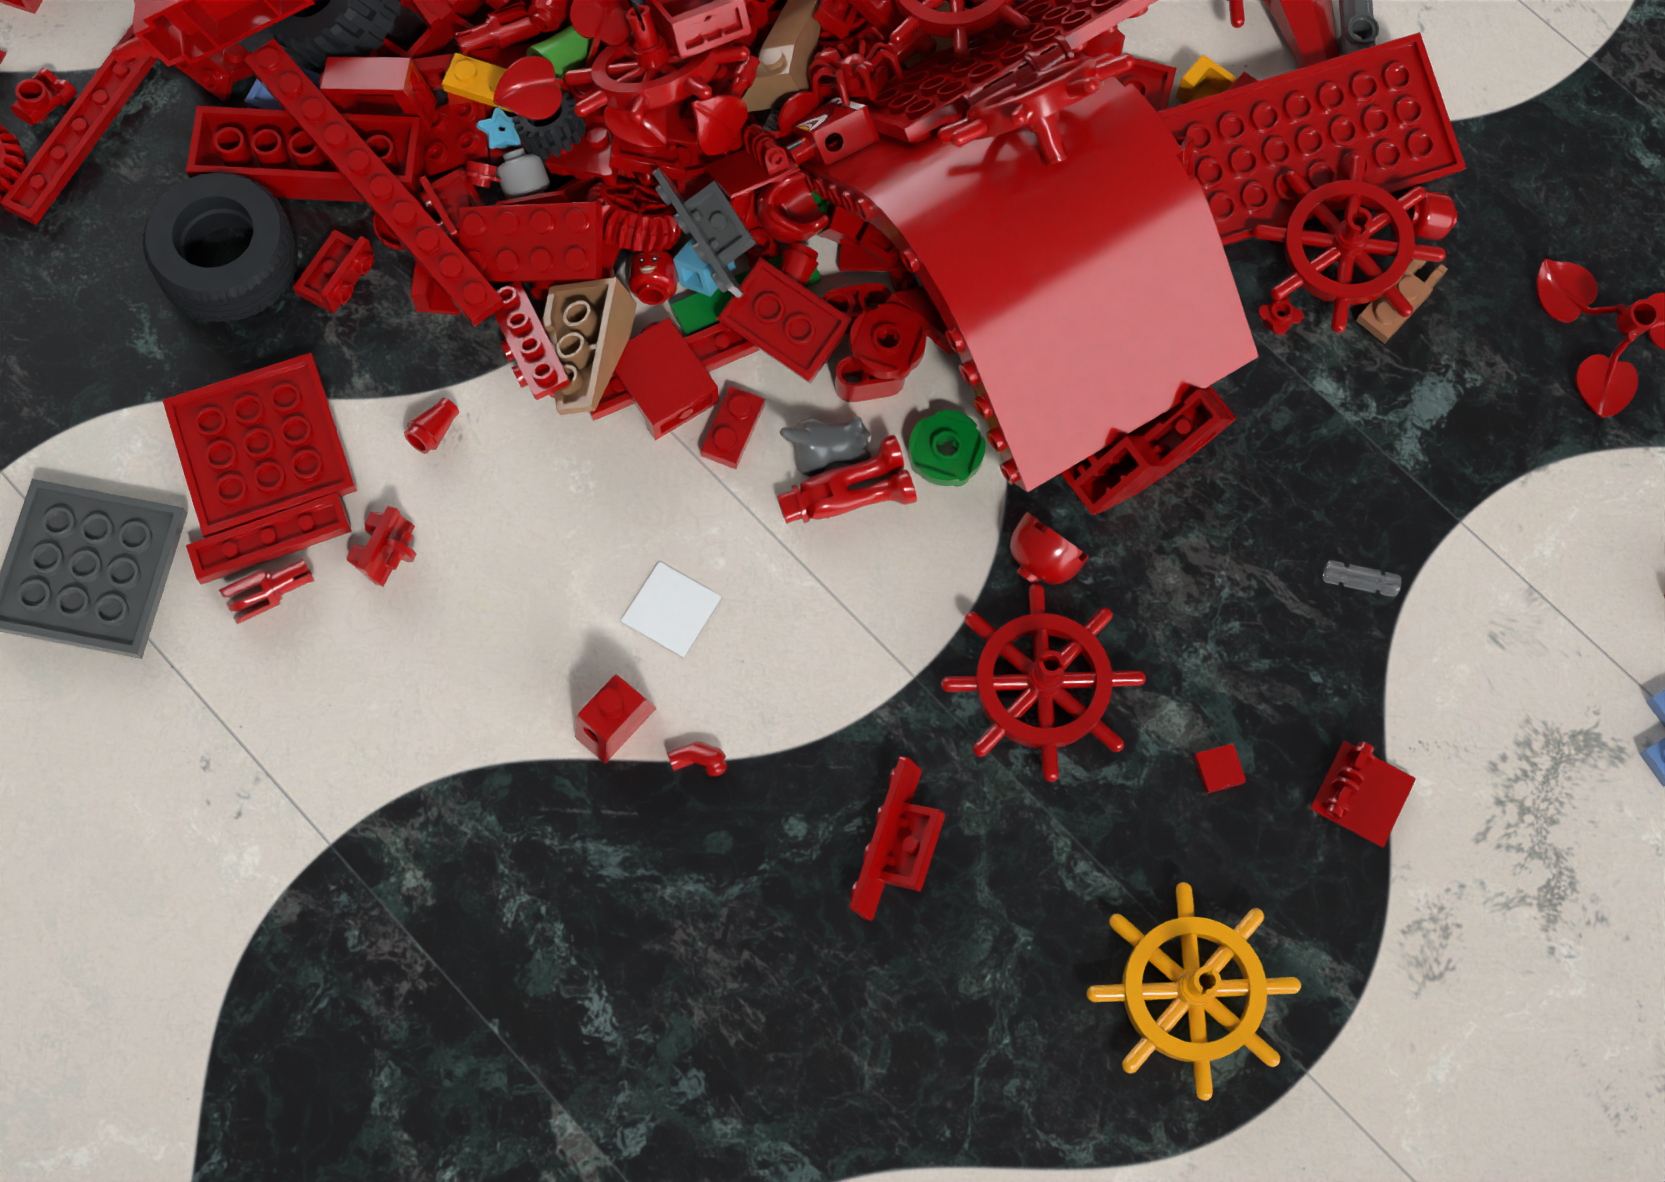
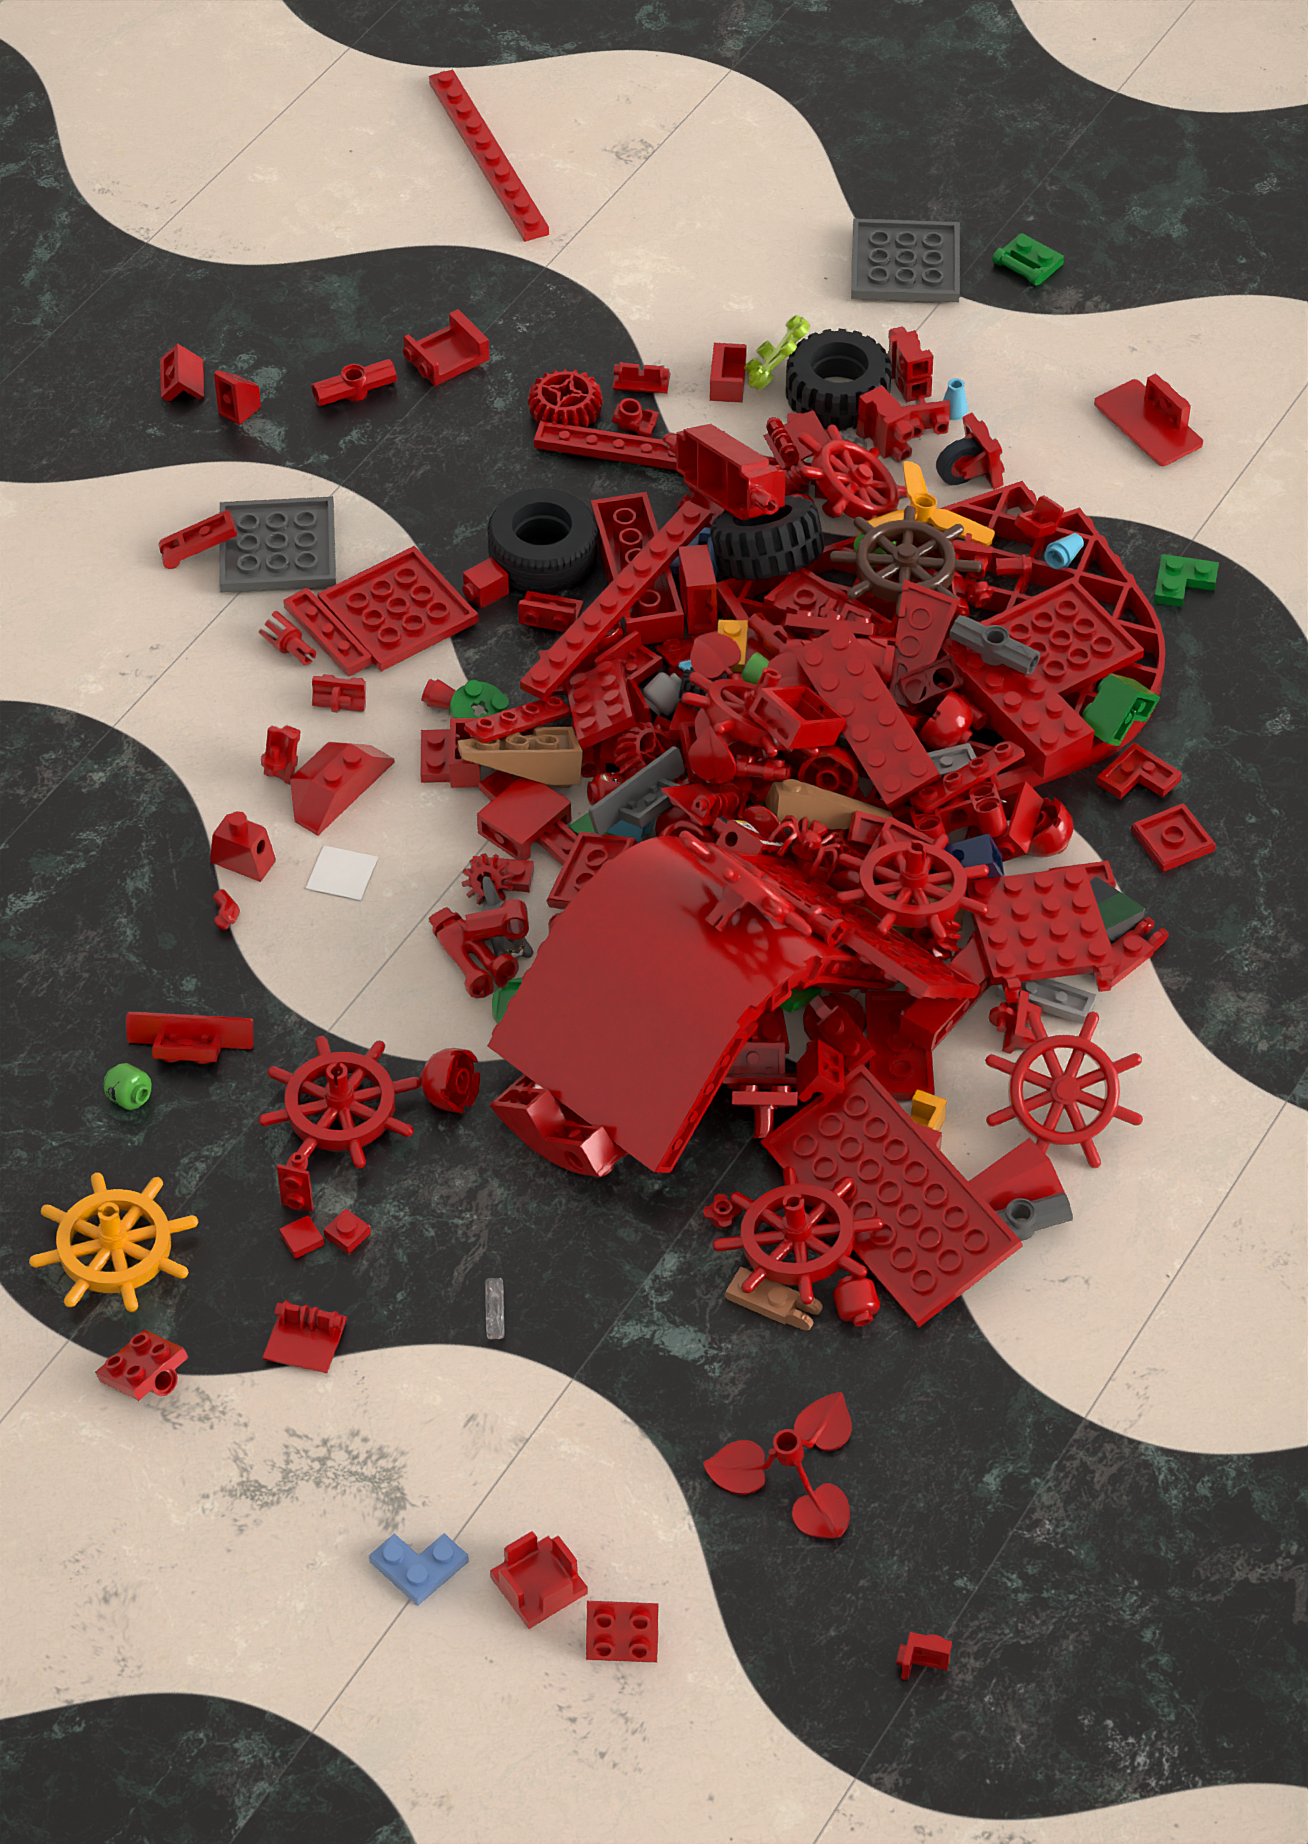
camera: 80 degrees right, 20 degrees down
(43, 665) = (196, 538): none -> red plate
(258, 332) = (485, 583): none -> red brick
(475, 632) = (281, 752): none -> red hips
(476, 369) = (475, 694): none -> green plate
(480, 174) = (653, 664): red plate -> none
(520, 458) = (435, 755): none -> red plate
(528, 584) = (334, 781): none -> red wedge
(539, 420) = (462, 772): none -> red brick
(755, 438) = (496, 874): none -> red gear
(844, 425) = (508, 921): none -> red piece
(957, 930) = (126, 1084): none -> bright green head
(1166, 751) = (295, 1183): none -> red hinge
(1221, 715) = (347, 1231): none -> red plate
(1382, 988) = (143, 1366): none -> red plate

